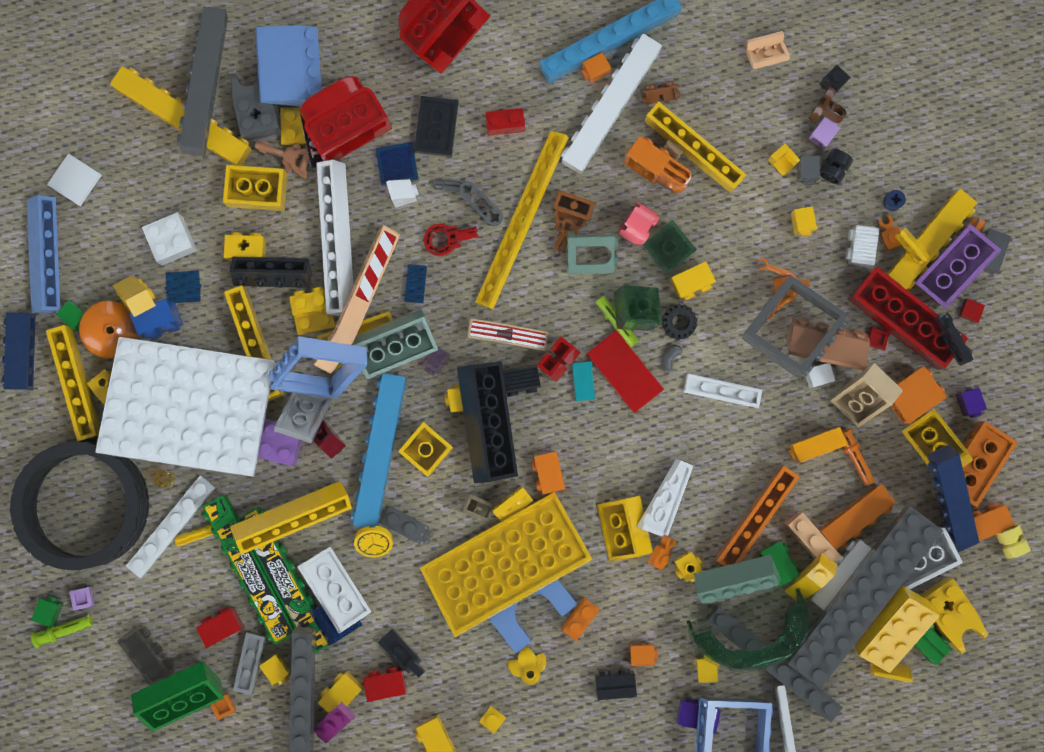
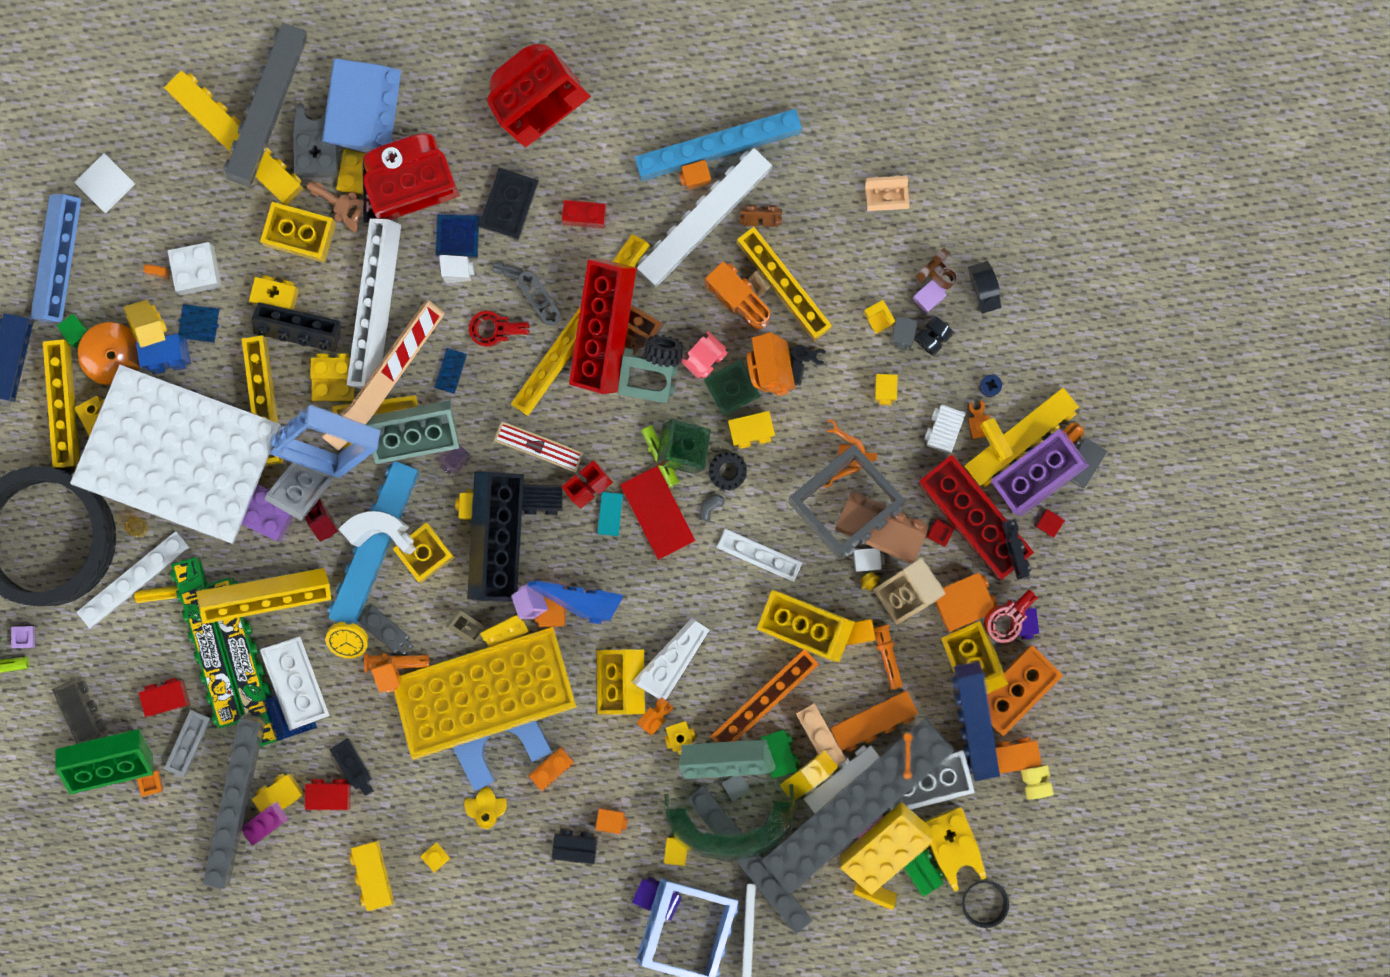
camera: 15 degrees right, 0 degrees up
(135, 248) = (156, 271): none -> orange tile
(276, 669) = (214, 755): yellow brick -> none
(324, 108) = (398, 160): none -> white bush
(370, 434) = (366, 524): none -> white arch
(411, 554) = (415, 661): none -> orange pin
(415, 565) = (386, 674): none -> orange brick
(530, 474) = (528, 603): none -> lavender brick
(544, 215) = (602, 326): none -> red brick
(581, 466) = (590, 605): none -> blue wedge
(603, 226) = (663, 350): none -> black tyre
(699, 220) = (770, 365): none -> orange brick
(721, 206) = (802, 353): none -> black bar
(746, 602) = (736, 787): none -> light grey tile
(781, 445) = (805, 626): none -> yellow brick
(825, 394) = (869, 581): none -> yellow plate
(835, 78) = (953, 240): black brick -> none
(873, 114) = (986, 286): none -> black brick
(906, 560) = (907, 774): none -> orange hinge
(964, 395) = (1016, 613): none -> red pin
(1008, 663) = (1000, 918): none -> black tyre

